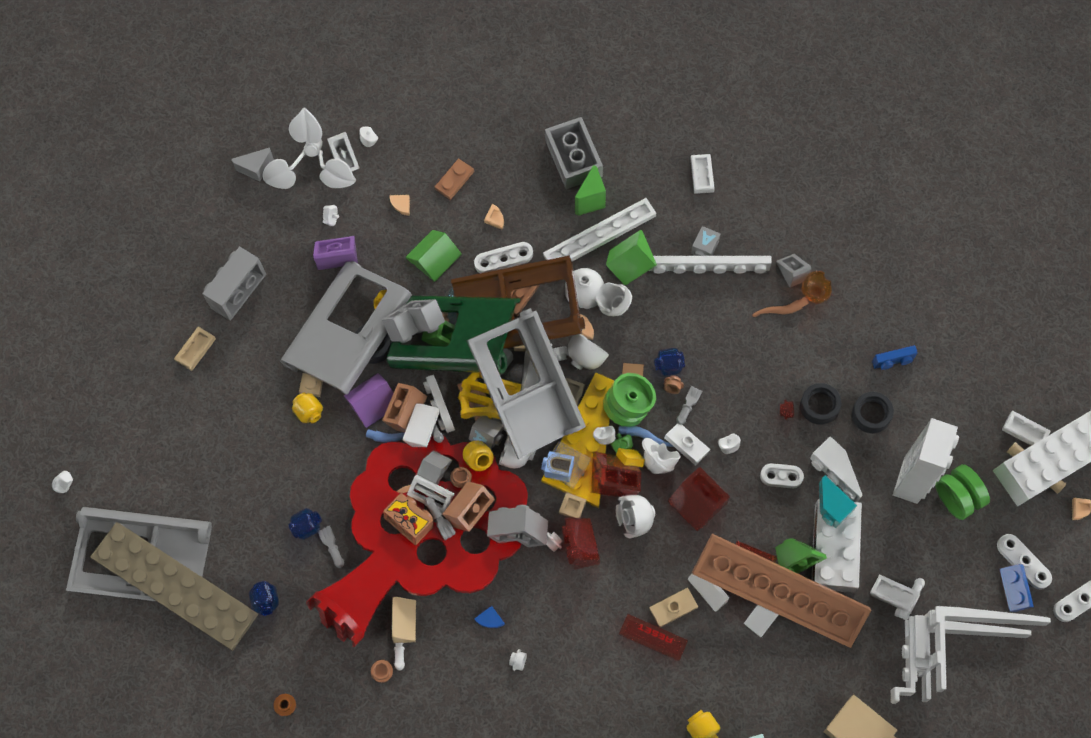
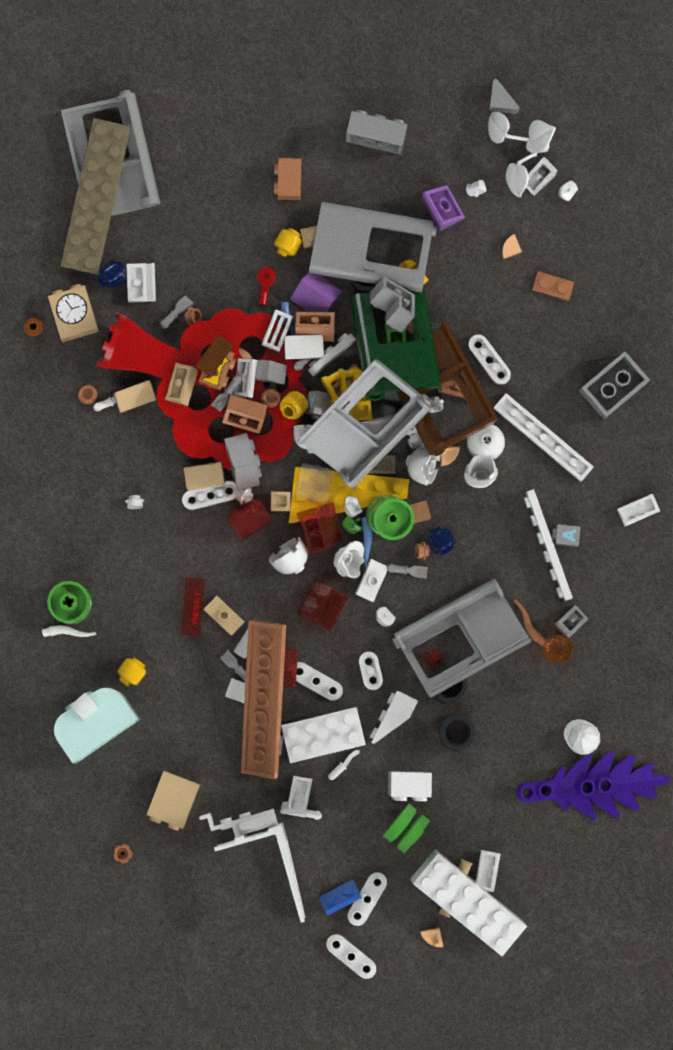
camera: 65 degrees right, 15 degrees up
(62, 482) = (150, 64): white piece -> none
(195, 348) = (307, 123): tan plate -> none
(243, 384) = (288, 179): none -> nougat brick
(285, 571) = (141, 282): none -> white plate
(287, 654) = (73, 313): none -> tan brick
(305, 523) = (186, 282): clear blue head -> none
(334, 443) = (266, 278): none -> red plate
(343, 529) = (193, 316): none -> nougat plate
(396, 512) = (214, 356): none -> reddish brown tile
(406, 458) = (271, 345): none -> white tile
(411, 562) = (181, 384): none -> tan slope
(434, 254) = (471, 296): bright green slope -> none
(489, 619) = (161, 466): blue tile -> none
(494, 217) = (527, 337): light nougat tile -> none
(517, 575) = (204, 476): none -> tan slope
(538, 567) = (201, 496): none -> white plate
(558, 466) = (306, 477): brick -> none
(591, 193) = (576, 415): bright green slope -> none
(630, 457) = (339, 535): yellow tile -> none
(631, 258) = (527, 472): bright green slope -> none
(725, 617) = (232, 662): none -> light grey piece
(769, 347) = (486, 624): none -> light grey piece
(781, 526) = (325, 682): none -> white plate
(798, 555) = (300, 704): bright green slope -> none
(834, 503) = (352, 720): teal slope -> none
(873, 537) = (342, 766): none -> white piece
(902, 356) = (510, 731): blue plate -> none
(912, 296) = (582, 736): none -> white piece
(964, 300) = (596, 785): none -> dark purple plant

